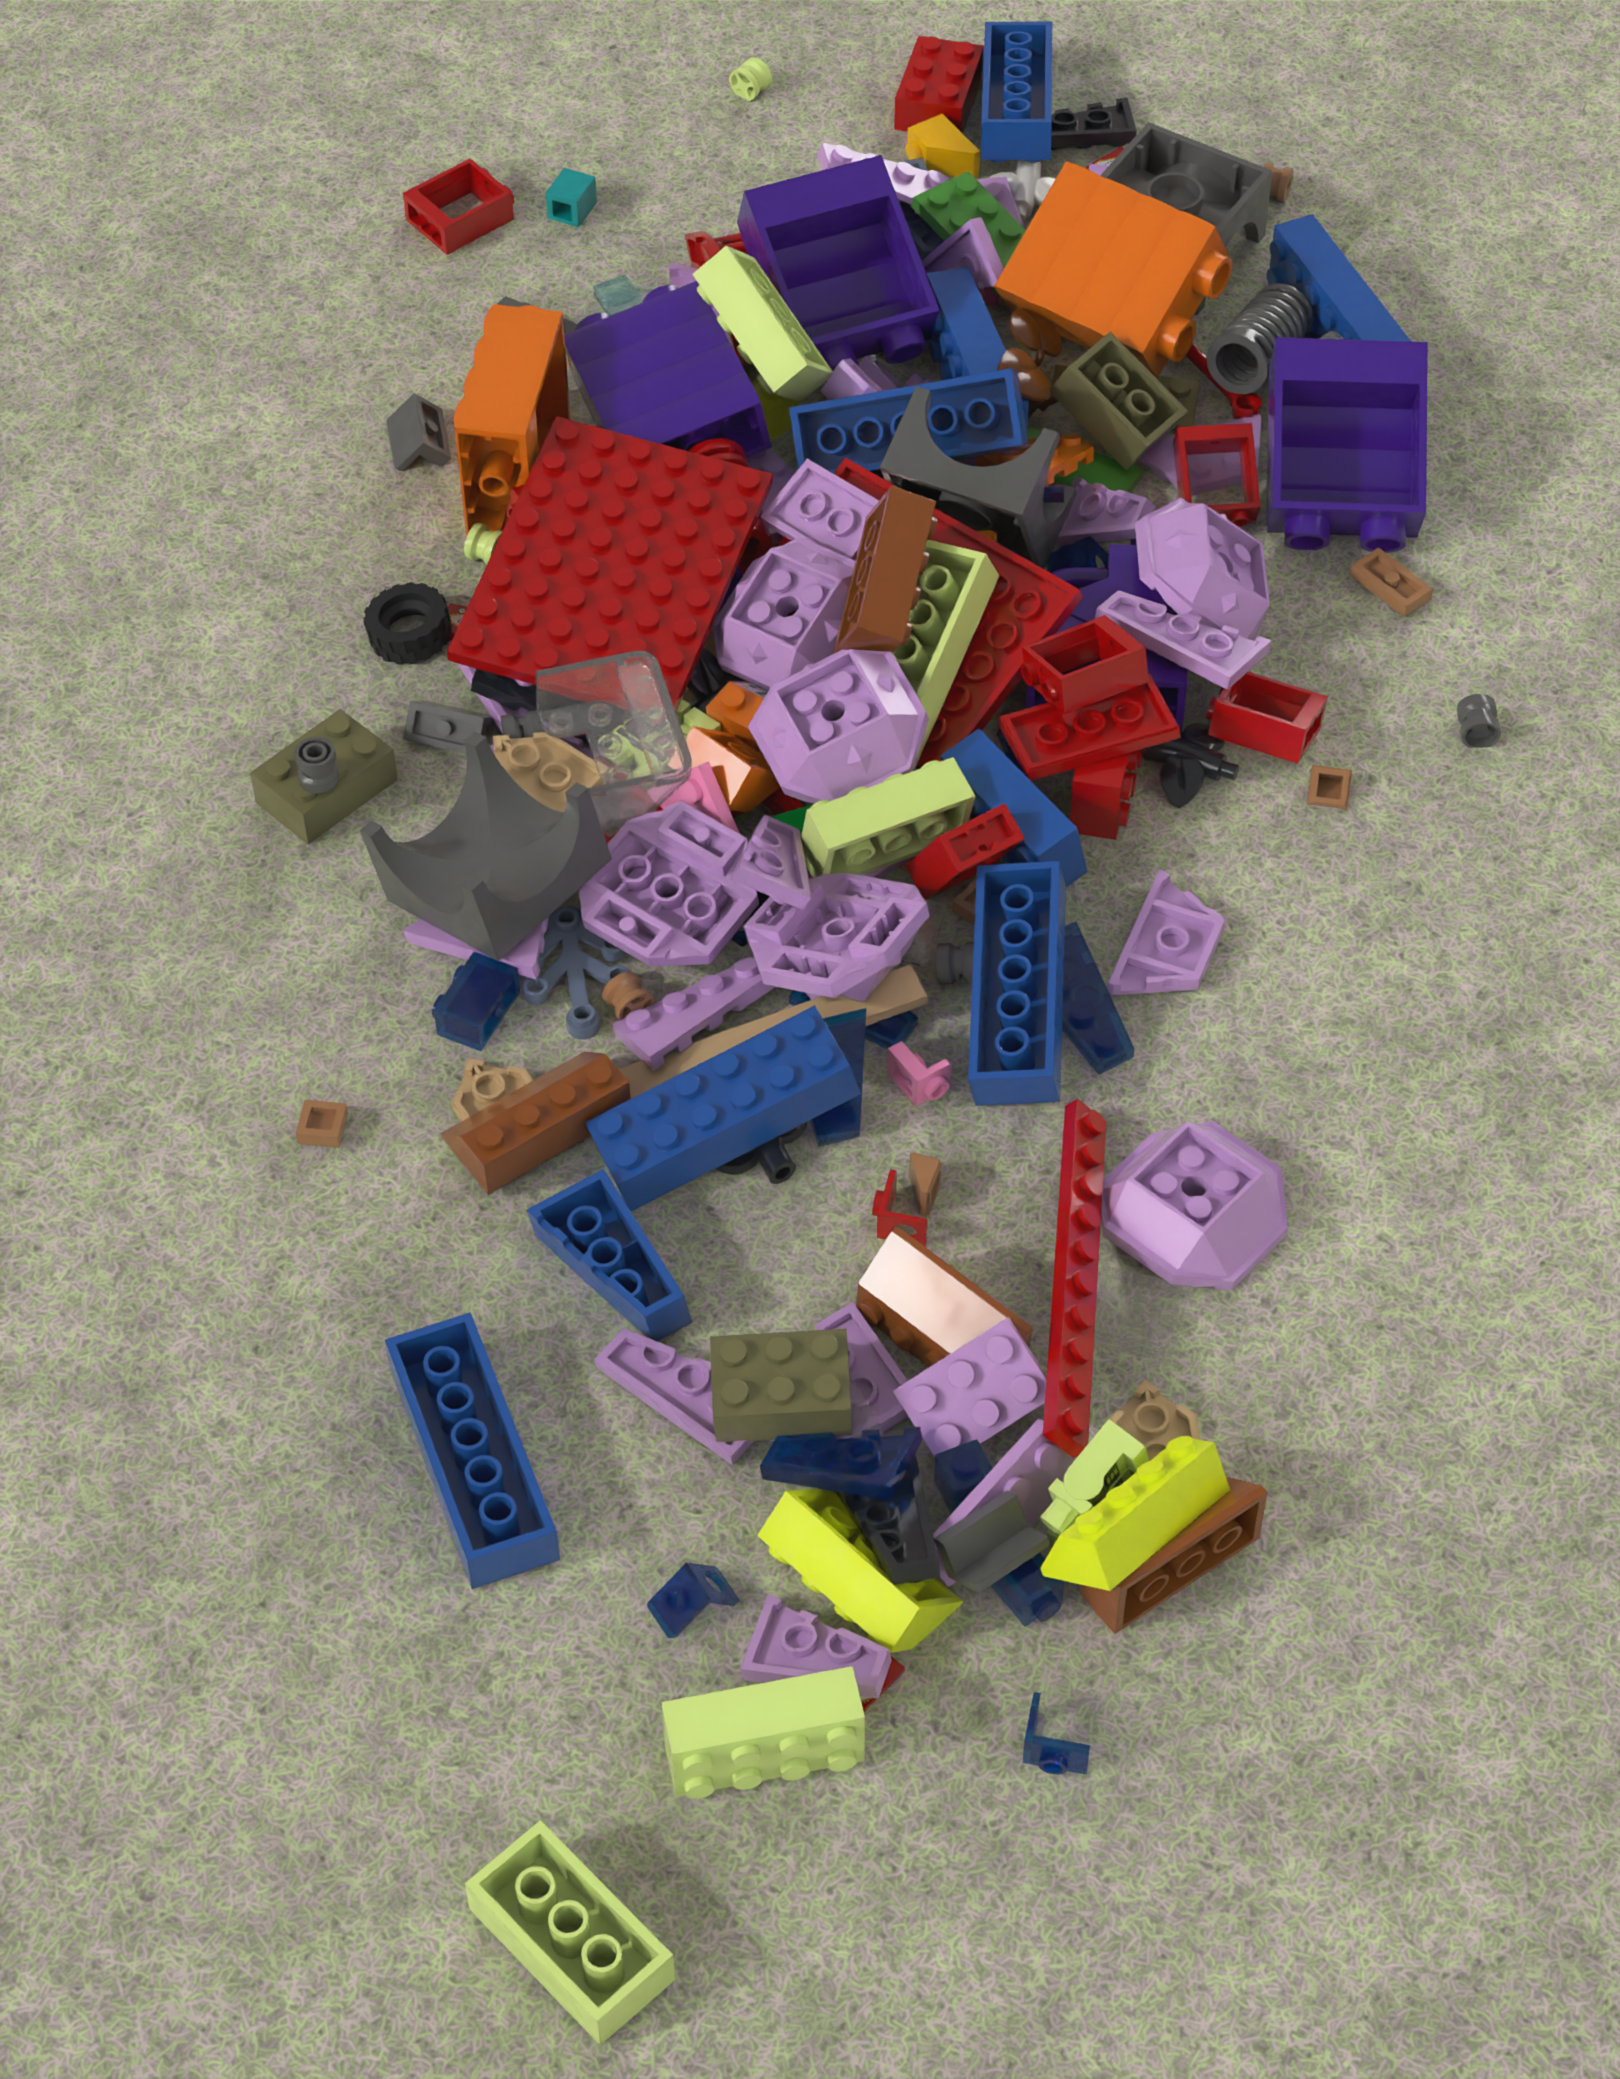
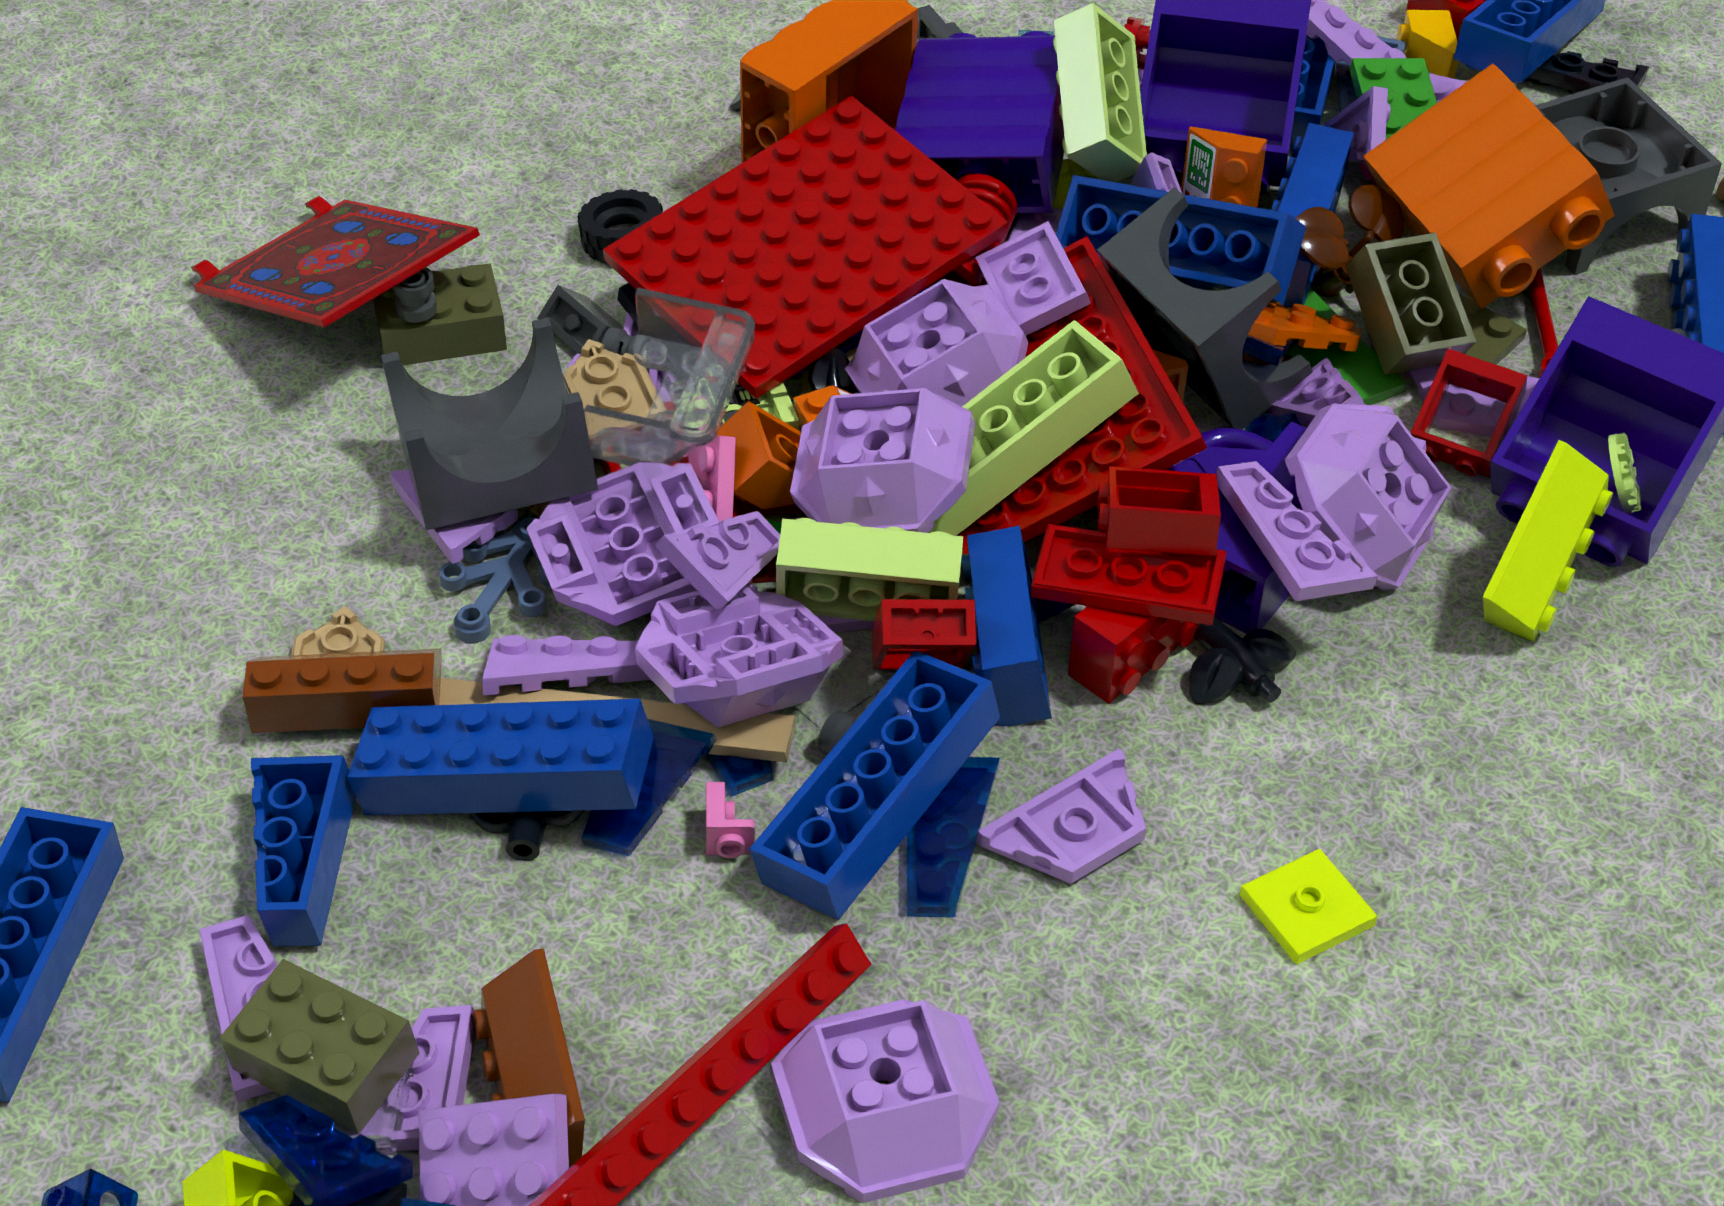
camera: 30 degrees right, 5 degrees down
(210, 770) = (333, 261): none -> flag
(322, 1123) = (173, 599): medium nougat plate -> none
(476, 1001) = (392, 560): clear blue brick -> none
(626, 994) = (525, 617): medium nougat wheel -> none
(887, 573) = (1018, 337): dark orange slope -> none
(887, 1220) = (584, 932): red bracket -> none
(896, 348) = (1223, 166): none -> orange slope
(925, 1180) = (642, 929): medium nougat slope -> none
(1244, 349) = (1641, 292): dark grey piece -> none
(1267, 716) = (1381, 663): red window -> none
(1329, 787) = (1364, 755): medium nougat slope -> none
(1358, 557) = (1546, 543): none -> neon yellow slope
(1373, 919) = (1308, 906): none -> neon yellow plate
(1374, 471) = (1624, 473): none -> yellowish green wheel
(1391, 582) = (1588, 599): medium nougat plate -> none
(1478, 721) = (1571, 764): dark grey wheel -> none

